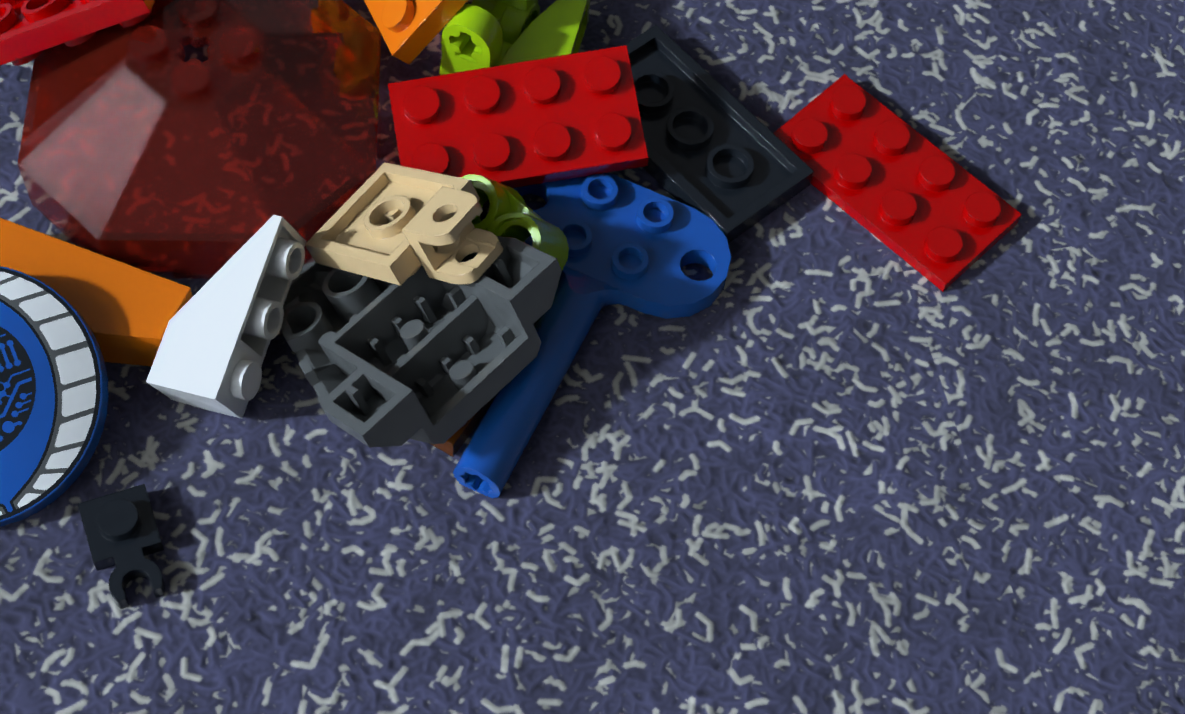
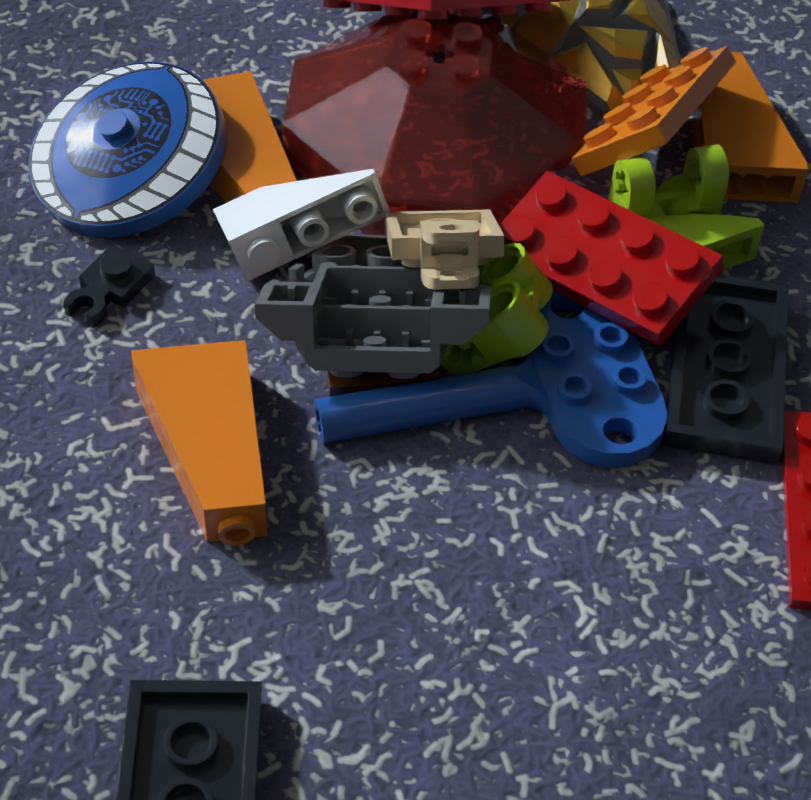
camera: 55 degrees right, 10 degrees down
(415, 582) = (208, 430): none -> orange slope

